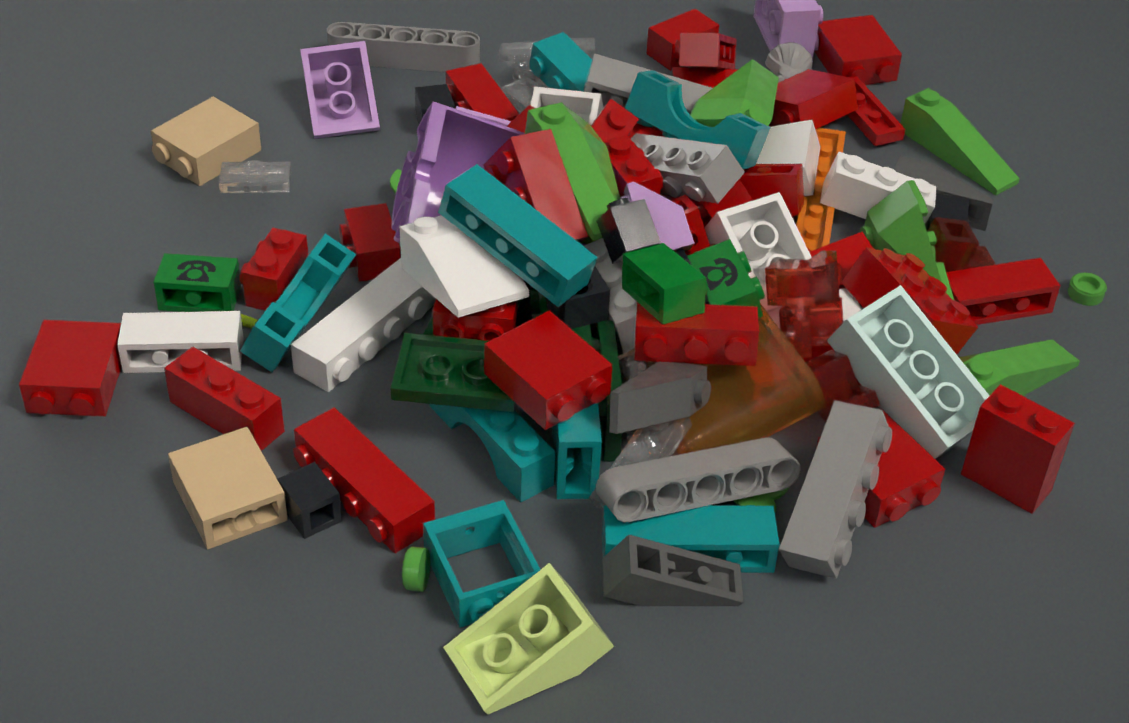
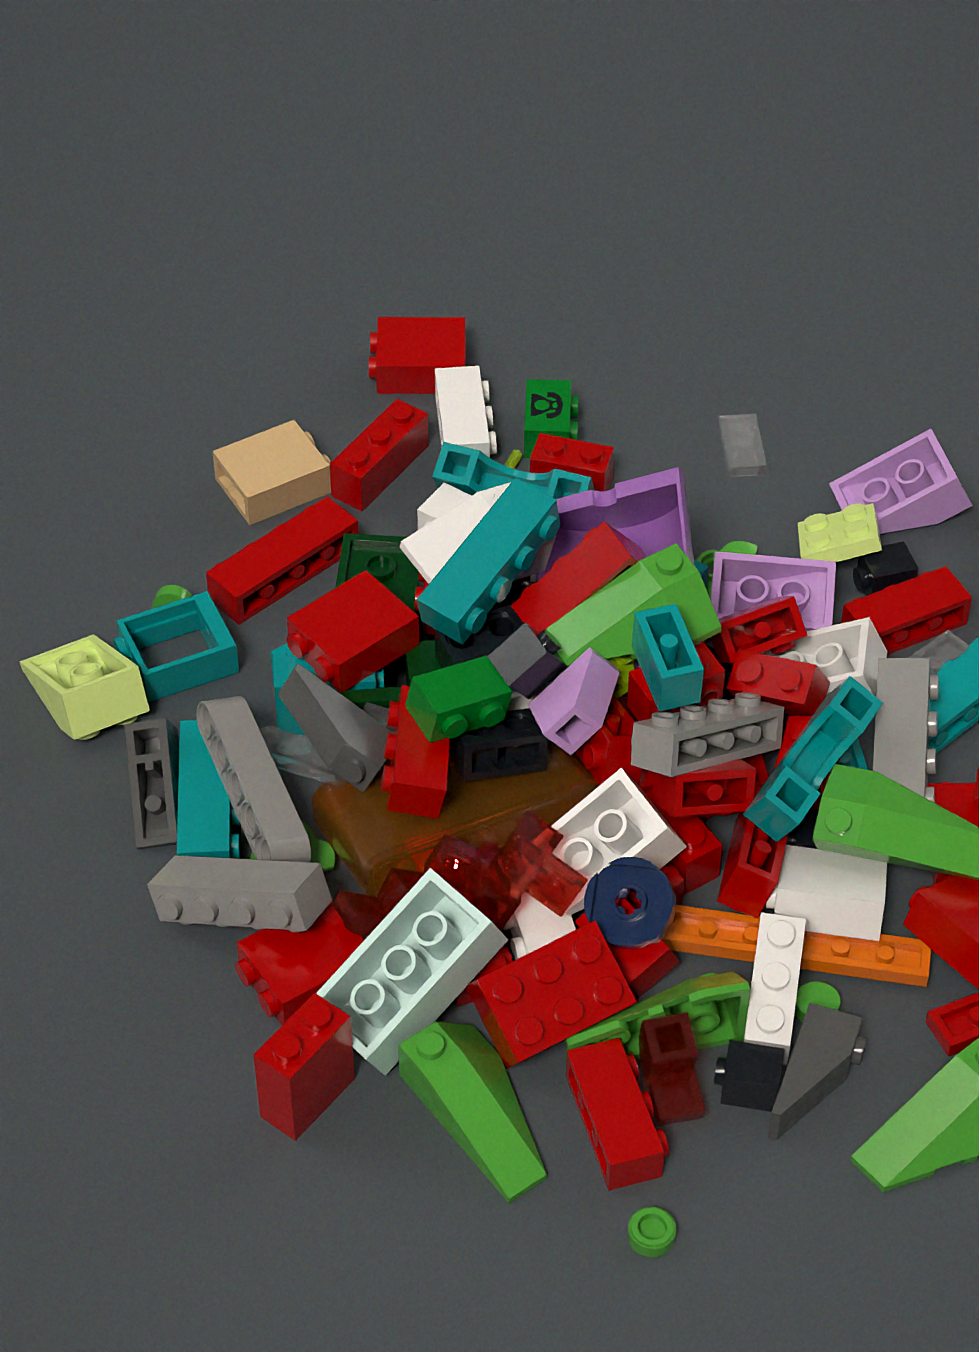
camera: 90 degrees right, 5 degrees up
(204, 138) = (787, 395): tan brick -> none
(310, 500) = (253, 519): black brick -> none
(394, 121) = (840, 534): none -> yellowish green plate
(647, 136) = (667, 657): none -> teal brick
(728, 276) = (503, 779): green brick -> none
(820, 232) = (613, 883): none -> dark blue plate

